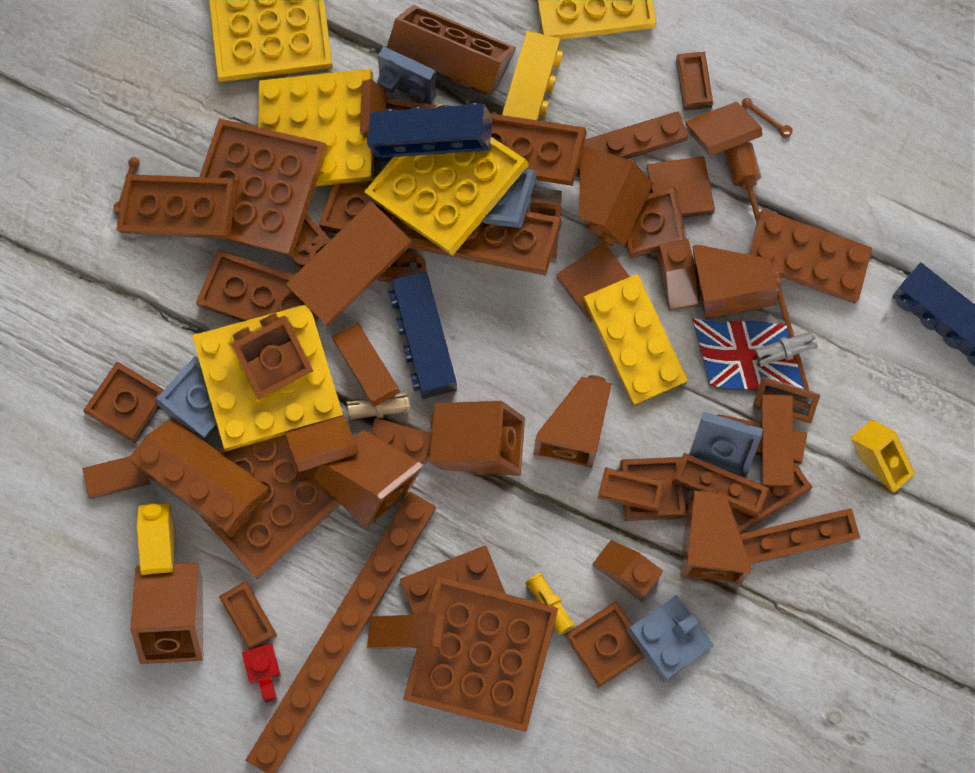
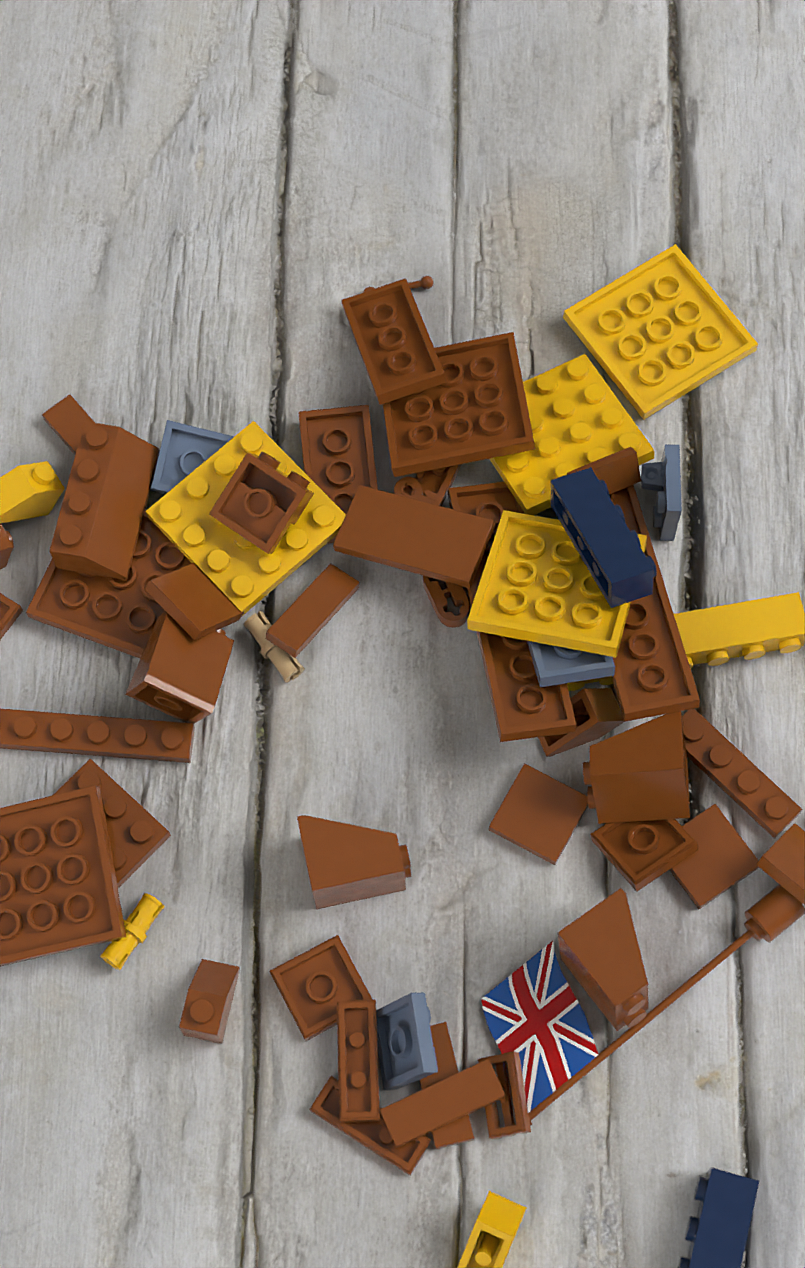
camera: 70 degrees right, 5 degrees down
(124, 402) = (159, 396): dark orange tile -> none
(404, 438) = (247, 689): dark orange plate -> none
(405, 631) = (24, 786): dark orange tile -> none
(424, 335) = (377, 654): dark blue brick -> none
(451, 48) = (734, 525): dark orange slope -> none
(477, 437) = (285, 766): dark orange slope -> none
(605, 644) = (115, 1017): dark orange tile -> none
(631, 490) = (304, 960): dark orange tile -> none
(635, 339) = (489, 886): yellow plate -> none
(670, 638) = (150, 1084): sand blue hinge -> none
(678, 274) = (592, 890): dark orange slope -> none
(712, 540) = (281, 1075): dark orange slope -> none
(786, 348) = (565, 1064): light grey pin -> none
(800, 536) = (337, 1180): dark orange plate -> none
(811, 255) = (699, 1043): dark orange plate -> none

